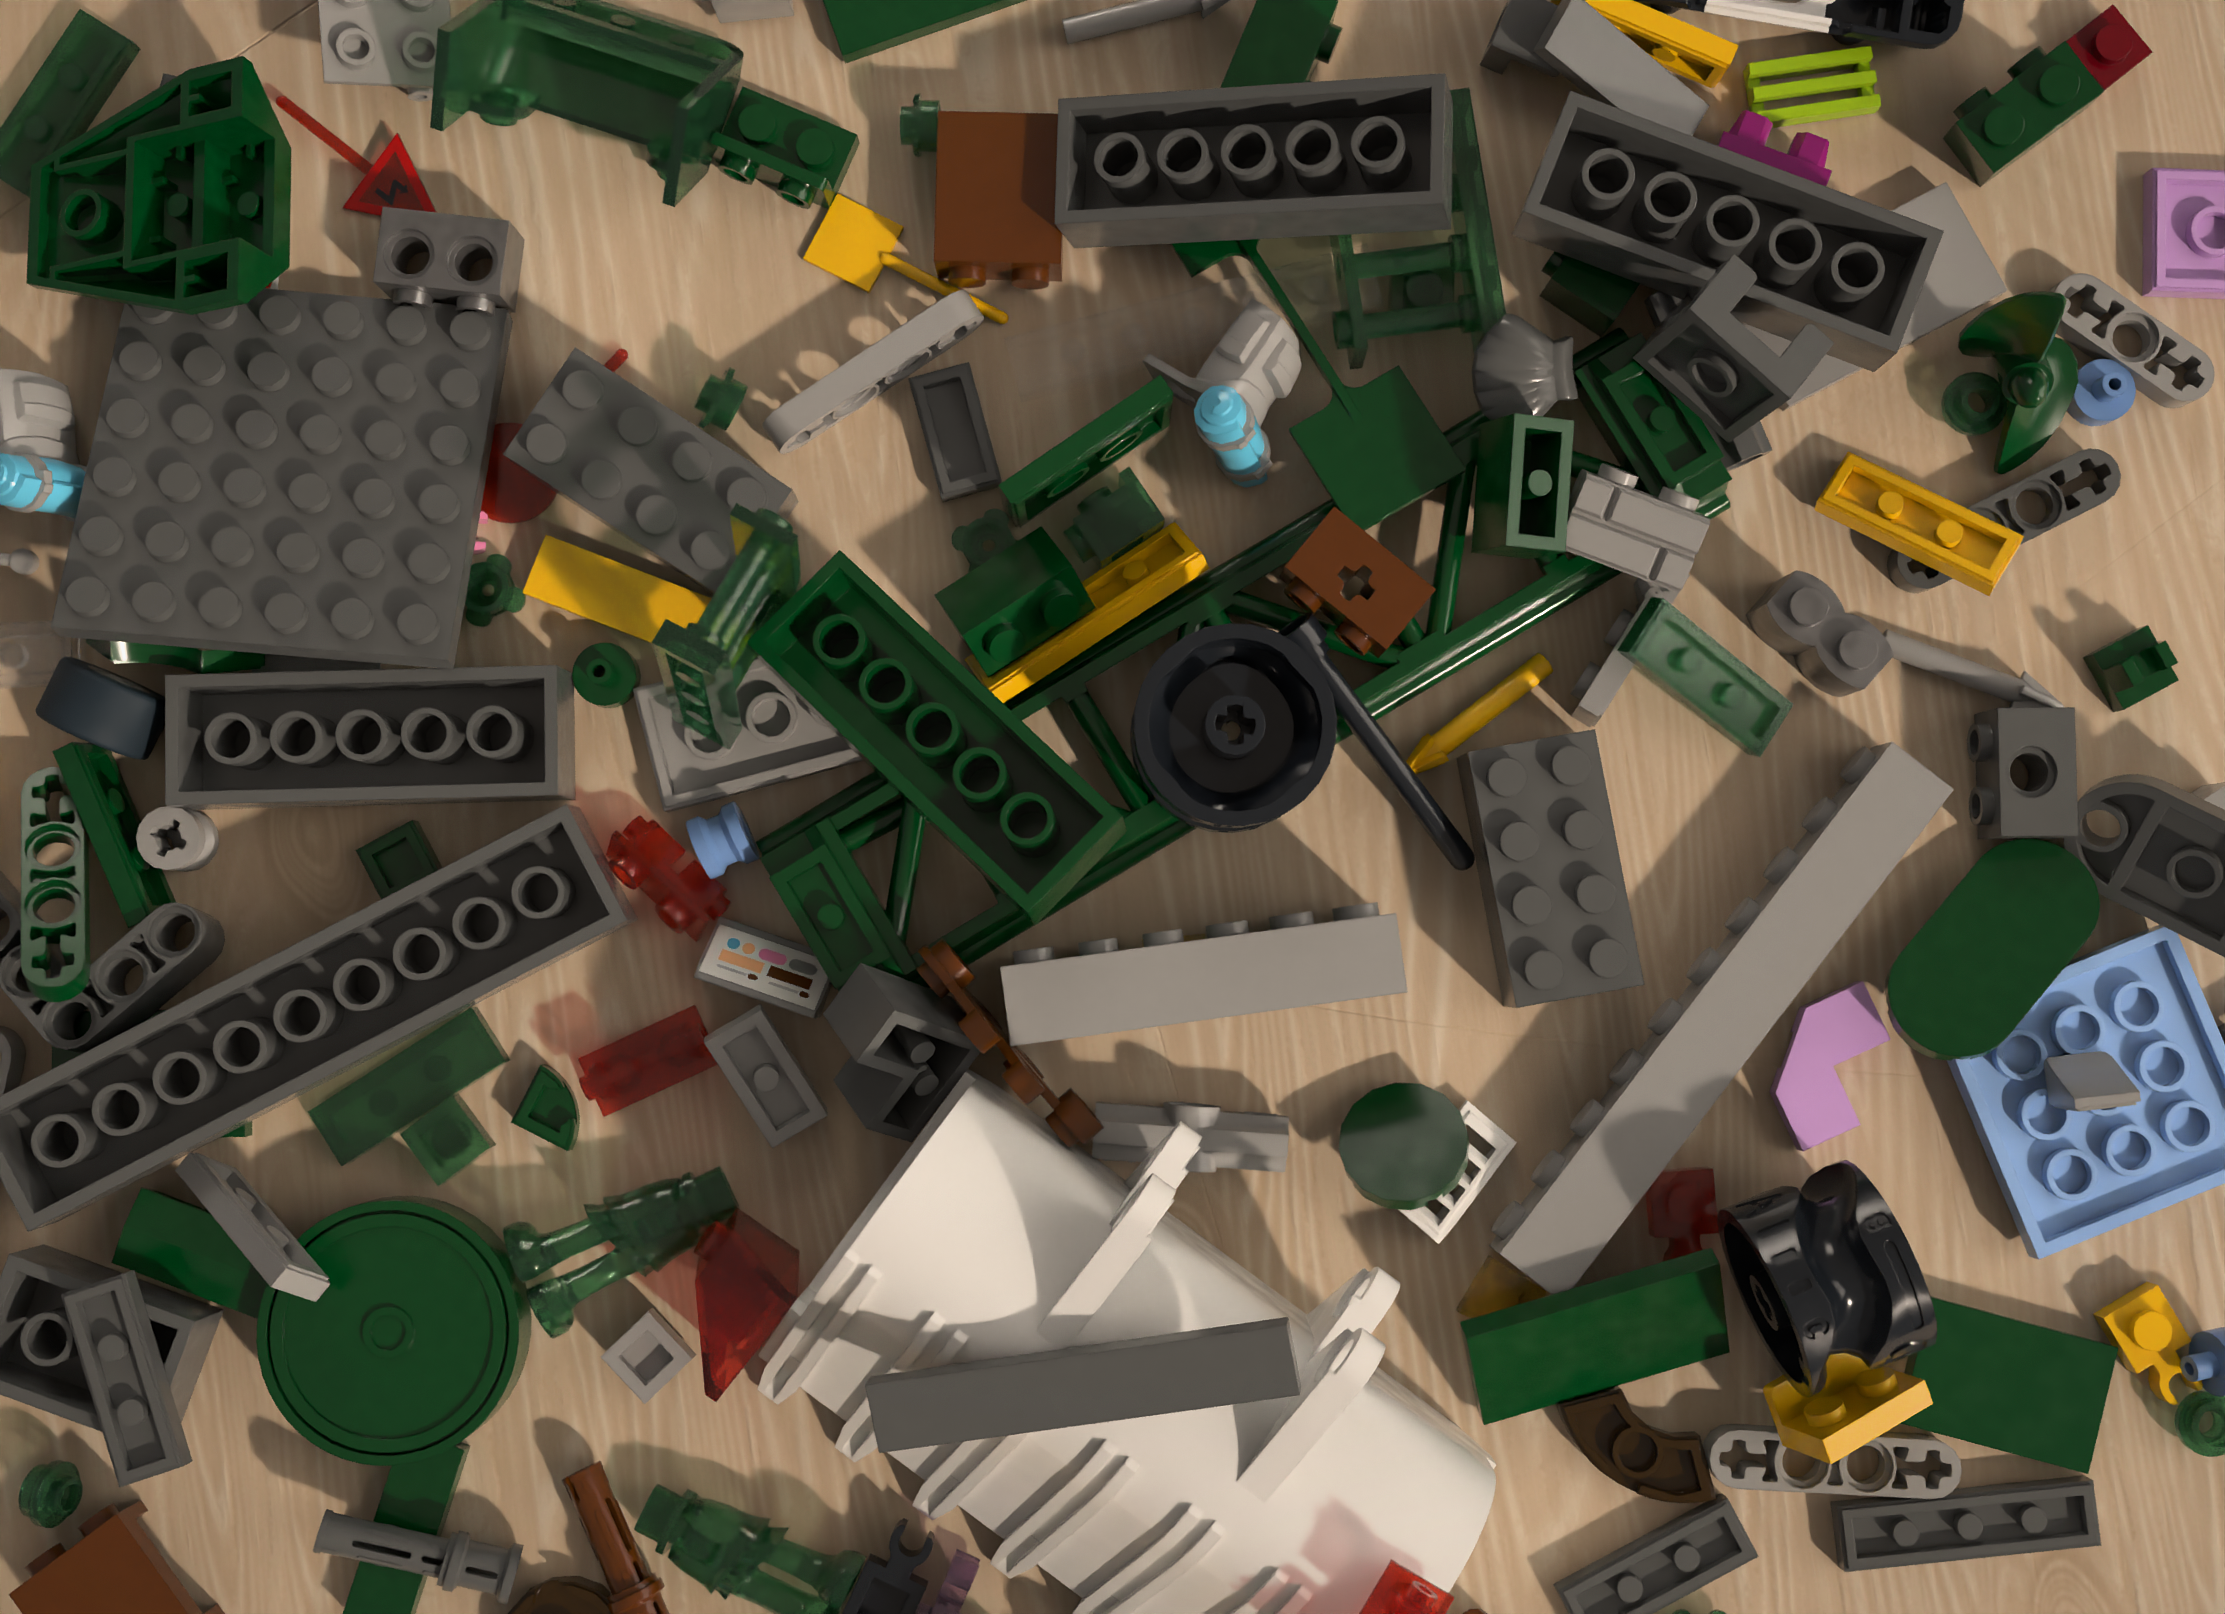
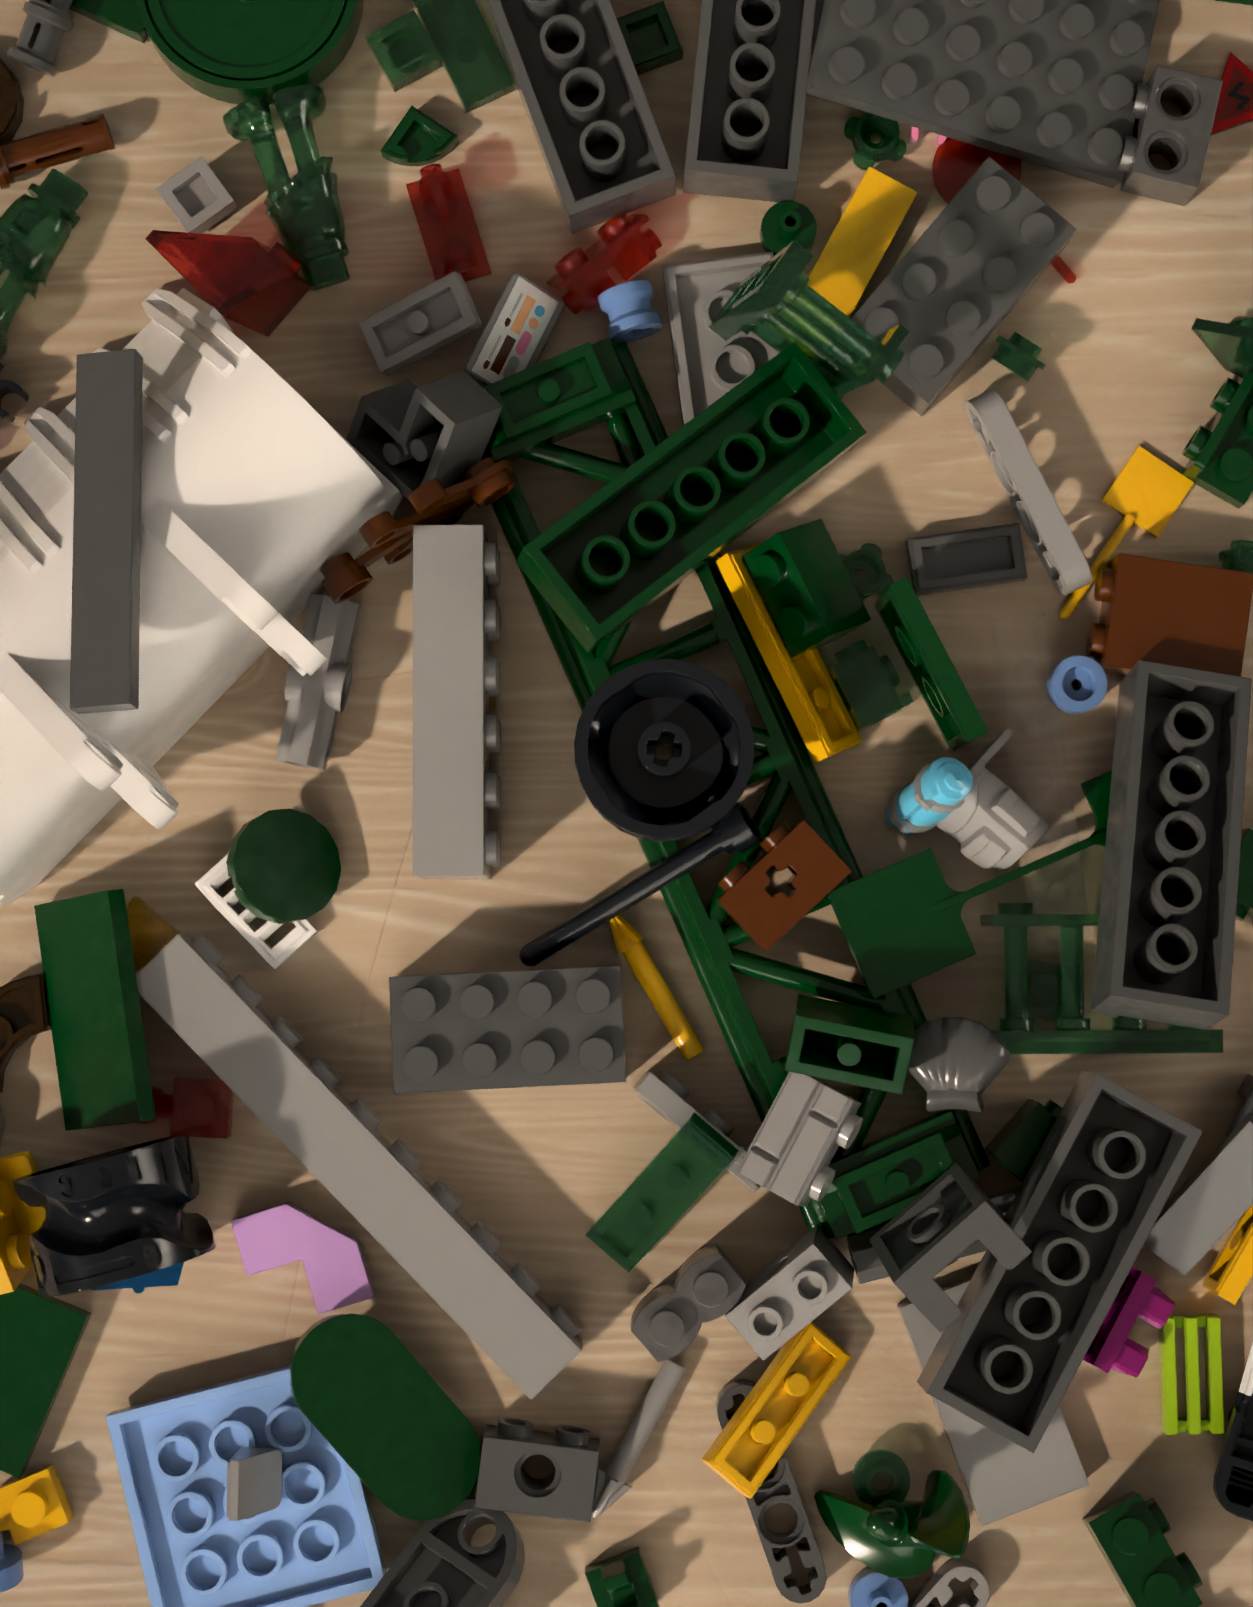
camera: 100 degrees right, 0 degrees up
(1083, 292) = (1087, 680): none -> medium blue tile
(1793, 520) = (791, 1292): none -> light grey brick

